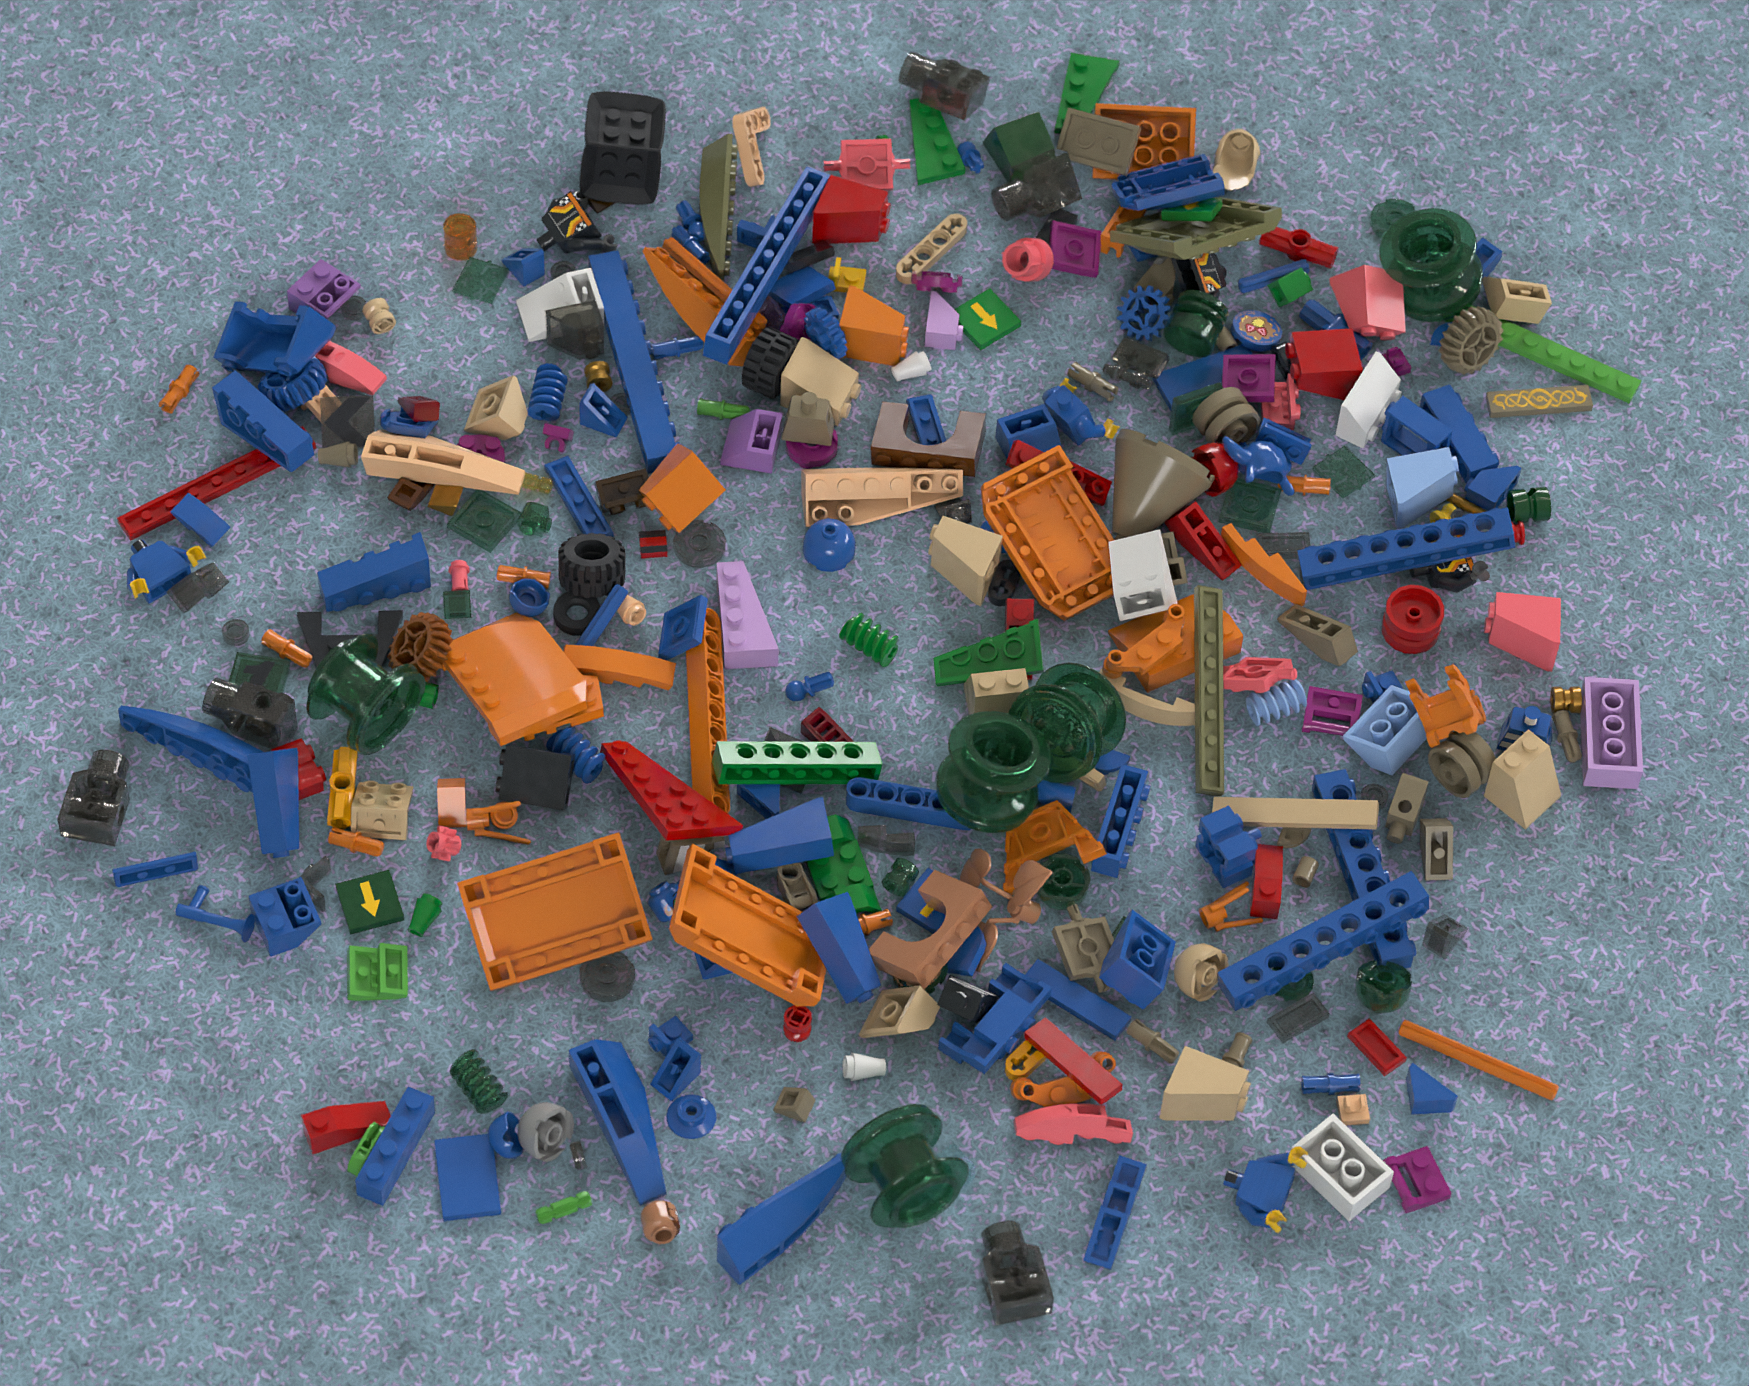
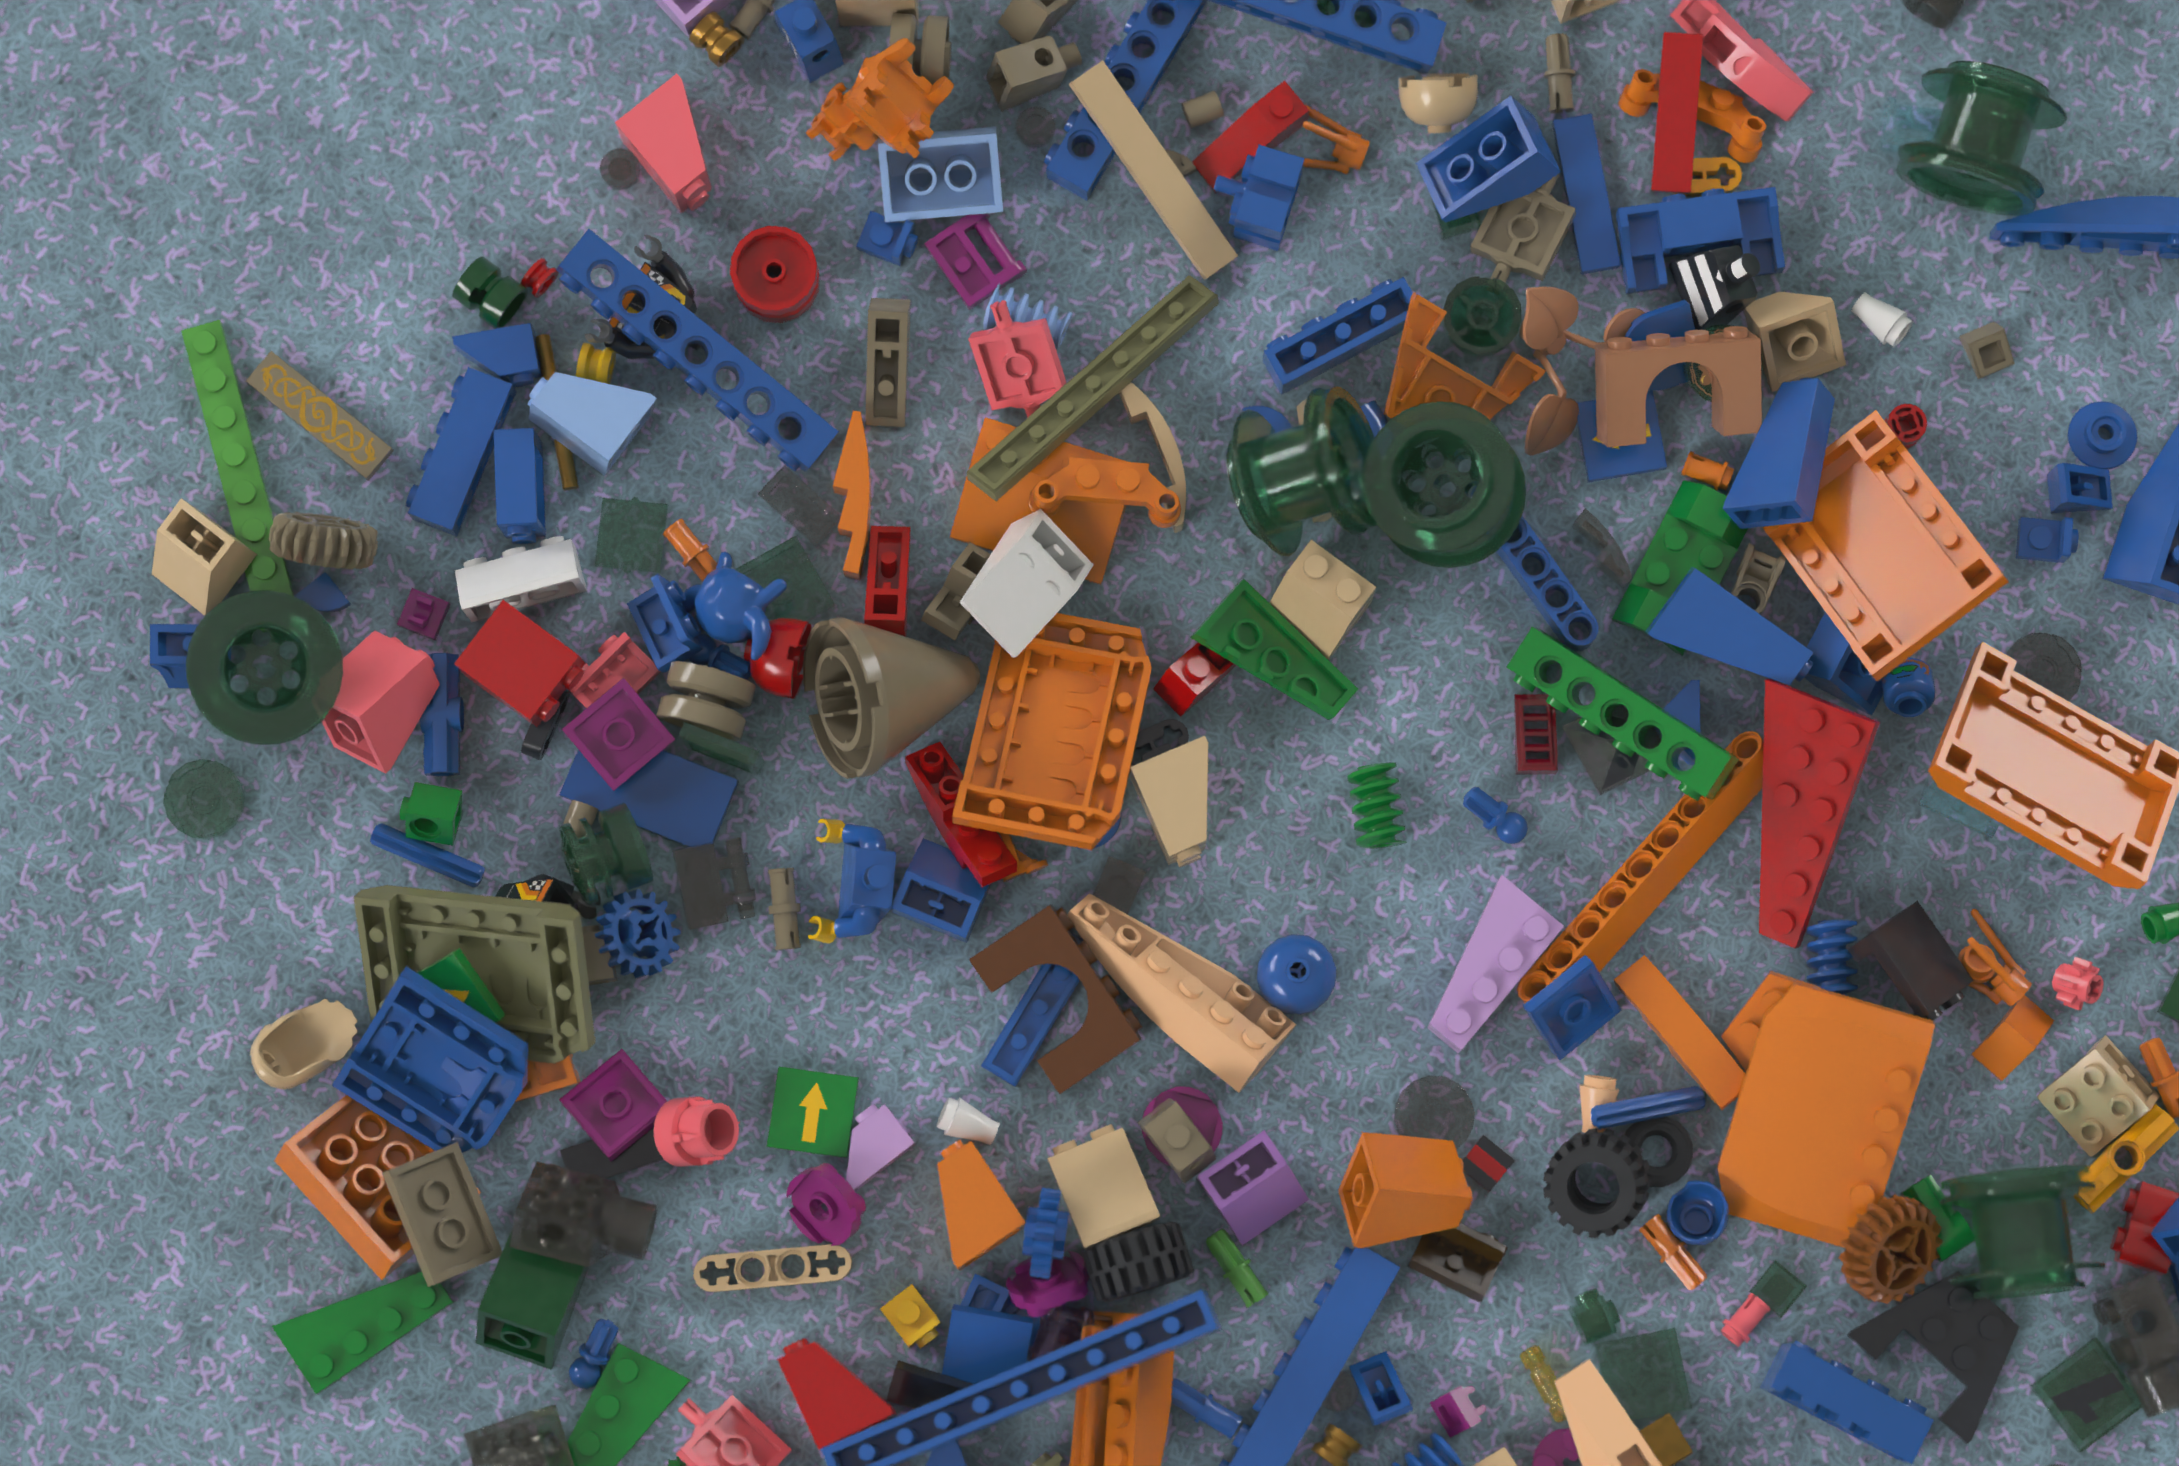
camera: 130 degrees left, 25 degrees up
(286, 648) = (2020, 1404): orange axle -> none
(577, 497) = (1513, 1301): blue tile -> none
(900, 876) = (1631, 493): clear green wheel -> none
(1256, 330) = (530, 798): tile -> none
(1300, 246) = (350, 840): red piece -> none

